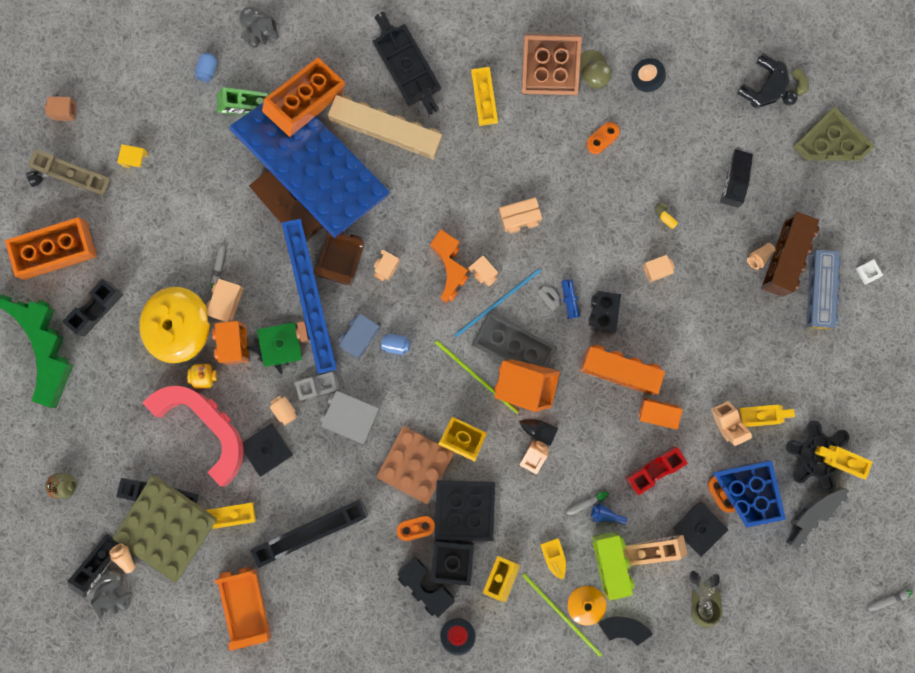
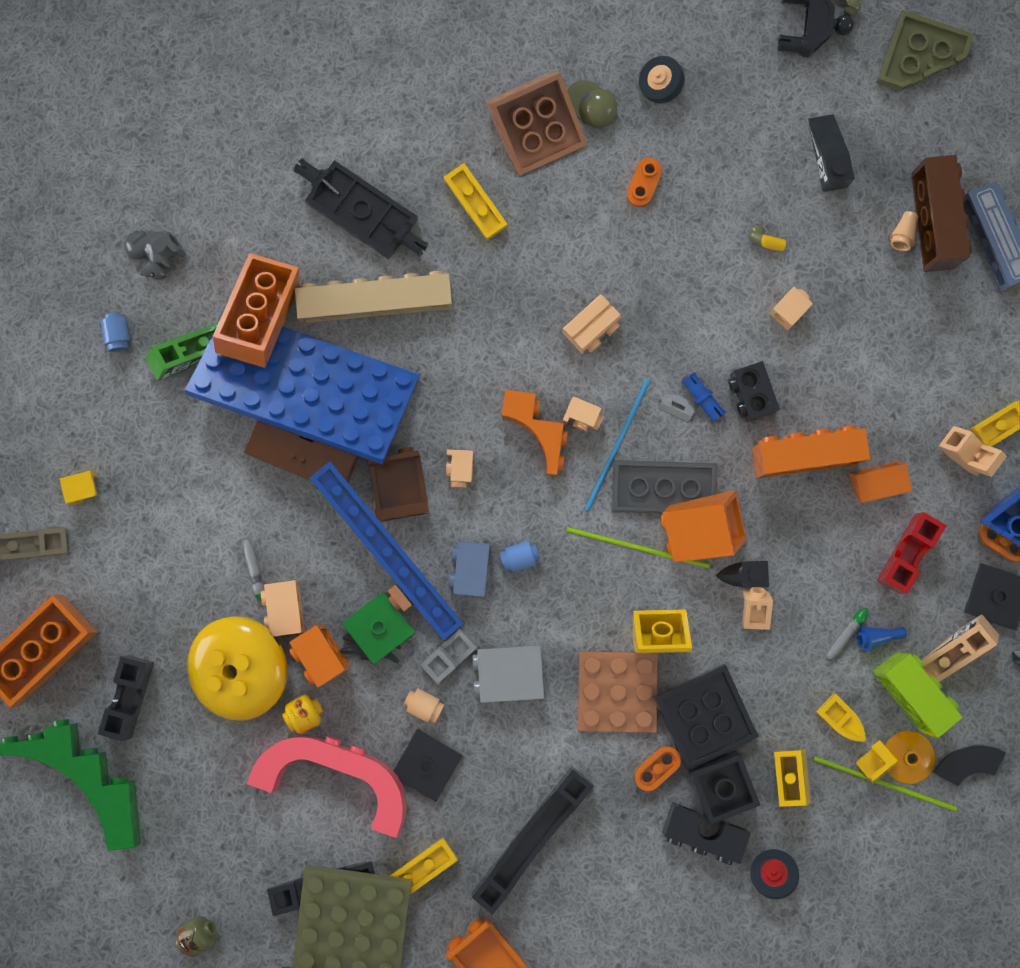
camera: 25 degrees left, 0 degrees up
(563, 597) = (877, 762): none -> yellow panel

